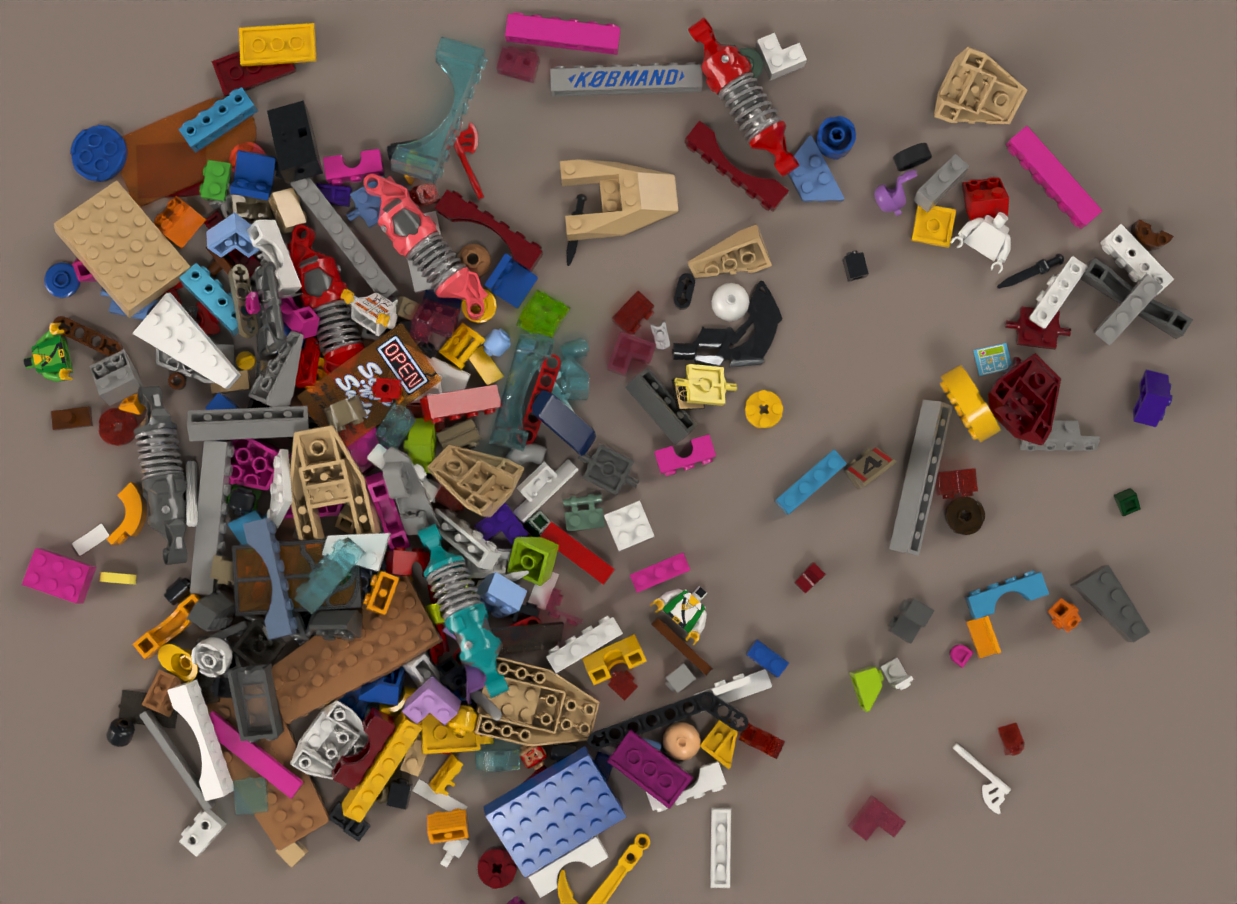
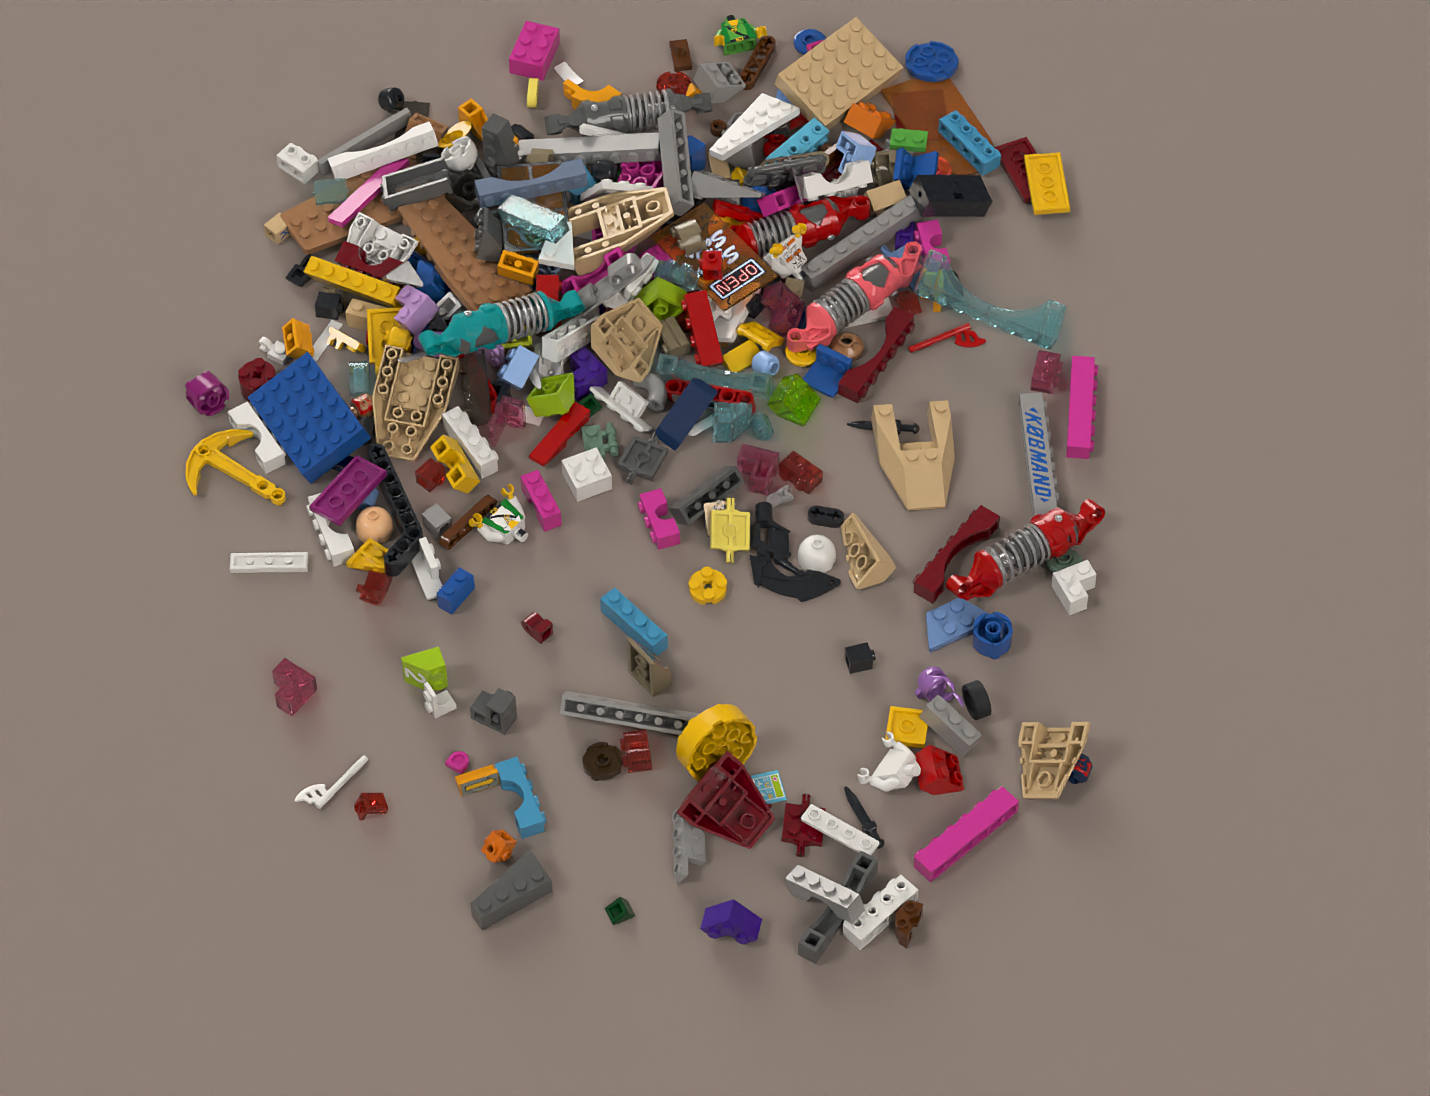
camera: 85 degrees right, 30 degrees down
(393, 716) = (404, 275): none -> slope

